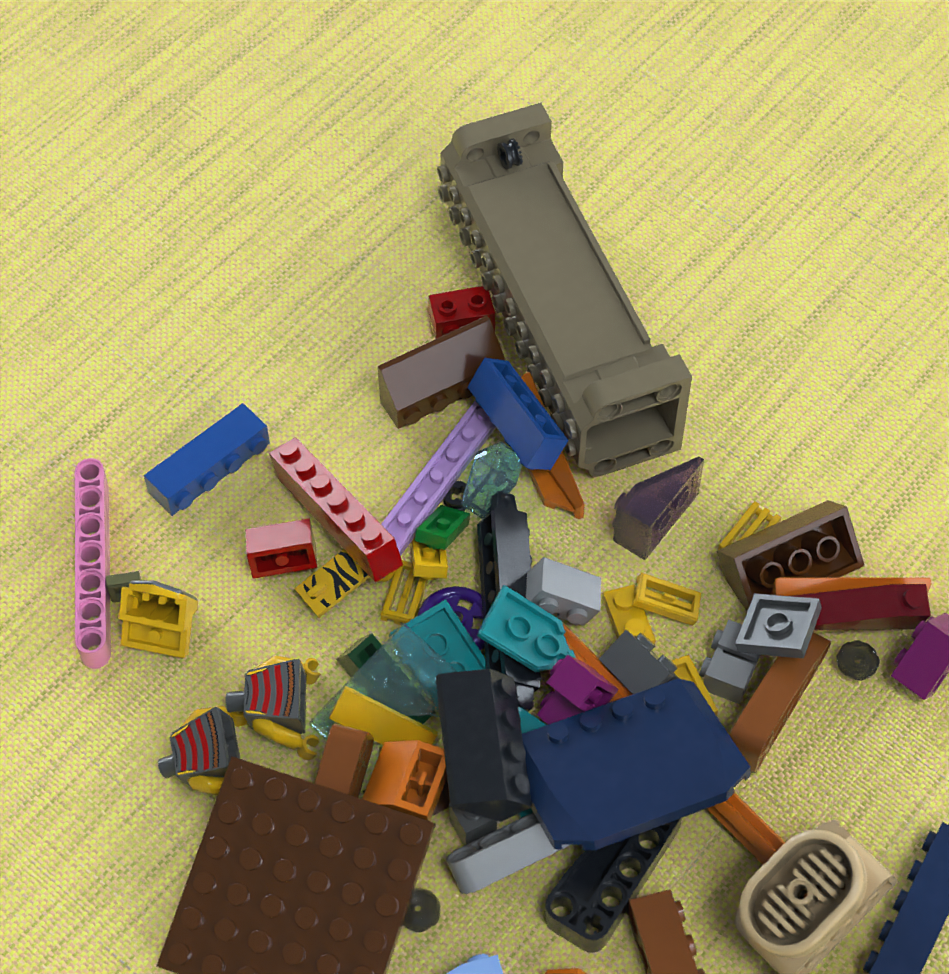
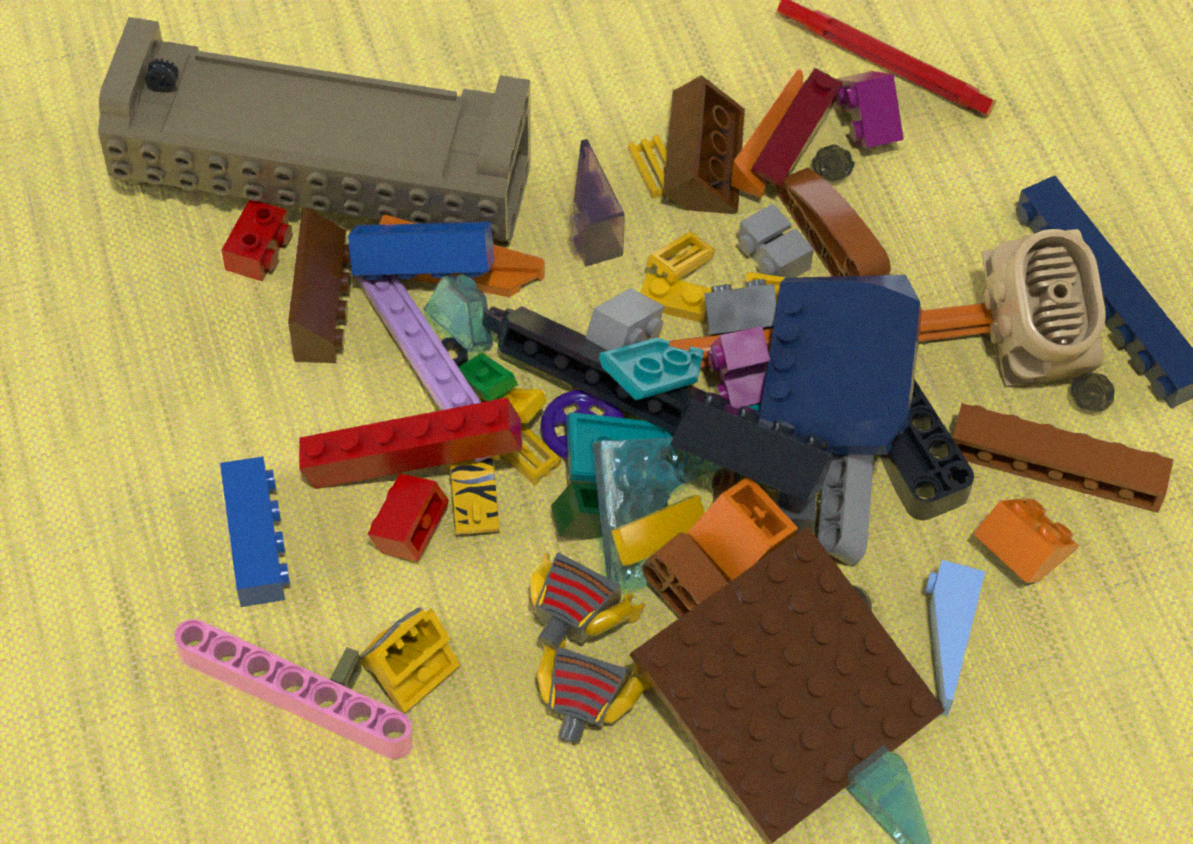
camera: 60 degrees left, 0 degrees up
(778, 625) = (782, 184): plate -> none

